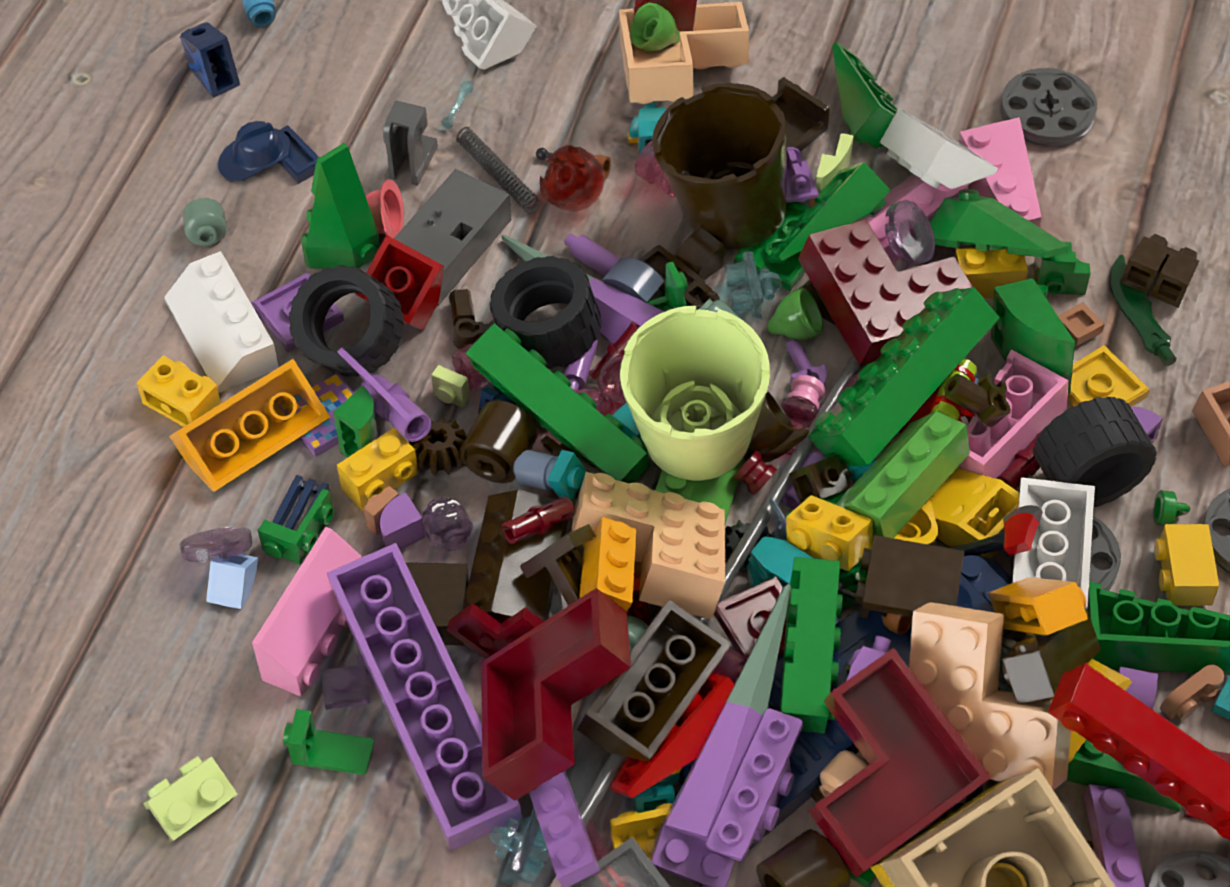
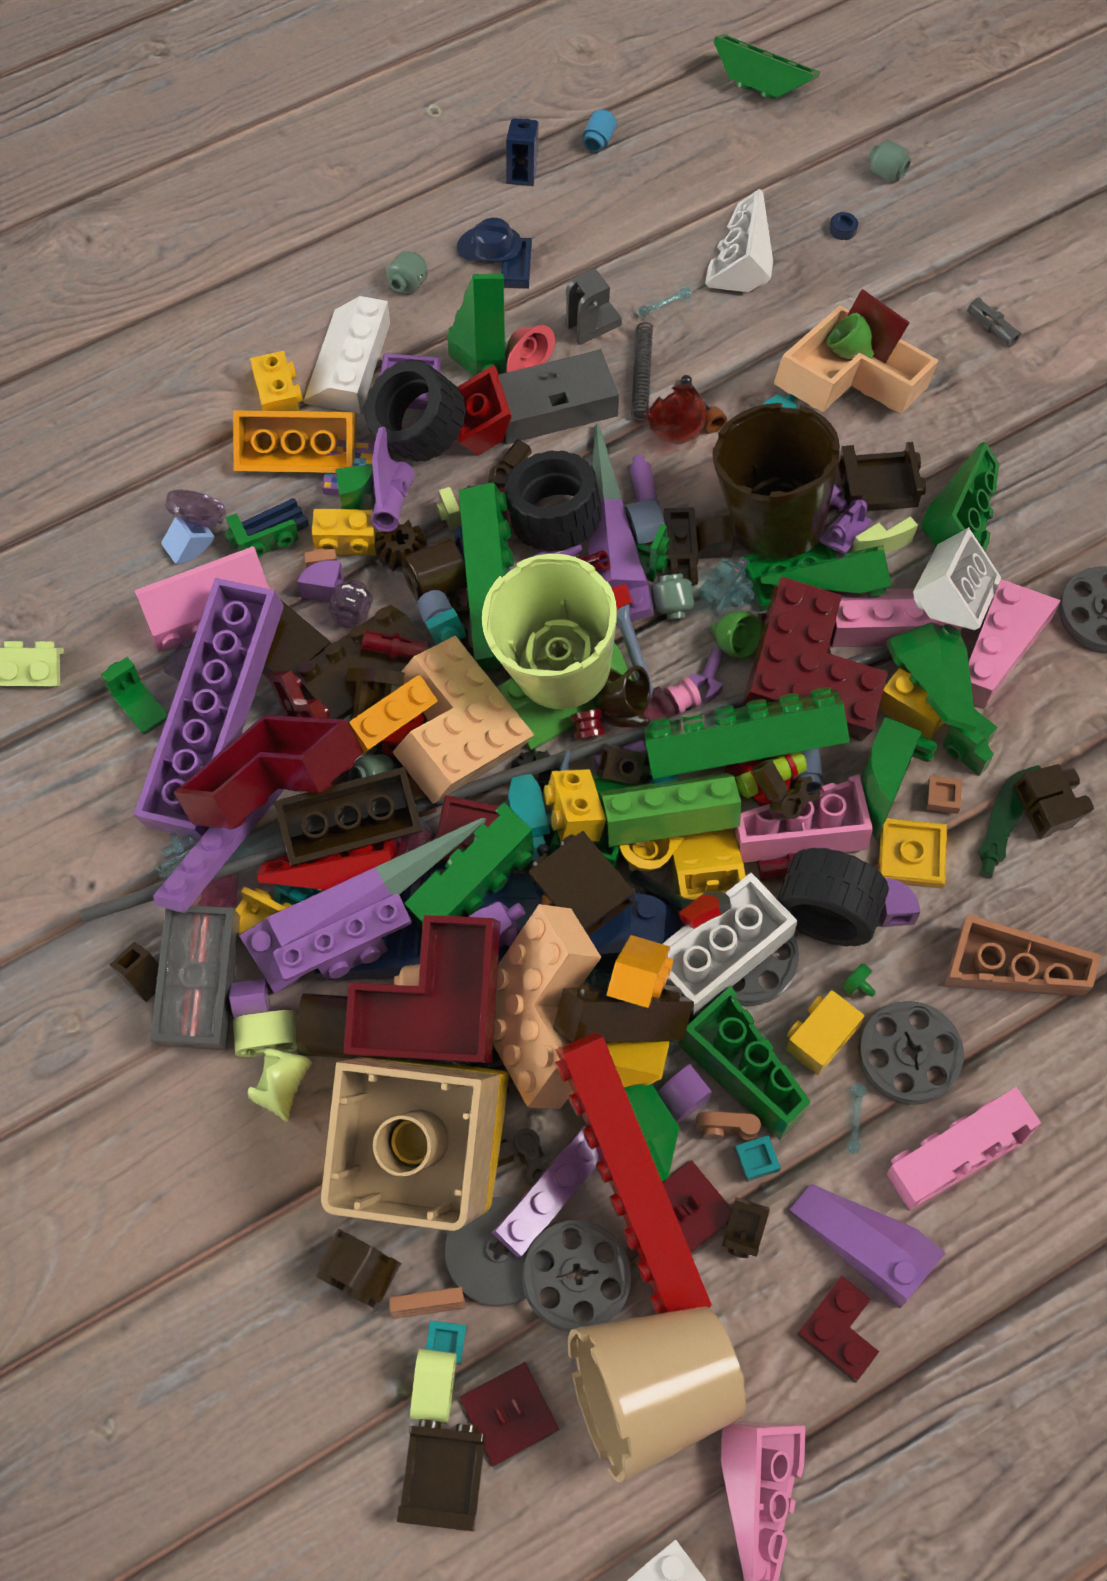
camera: 40 degrees right, 10 degrees up
(910, 233) = (884, 629): clear purple tile -> none

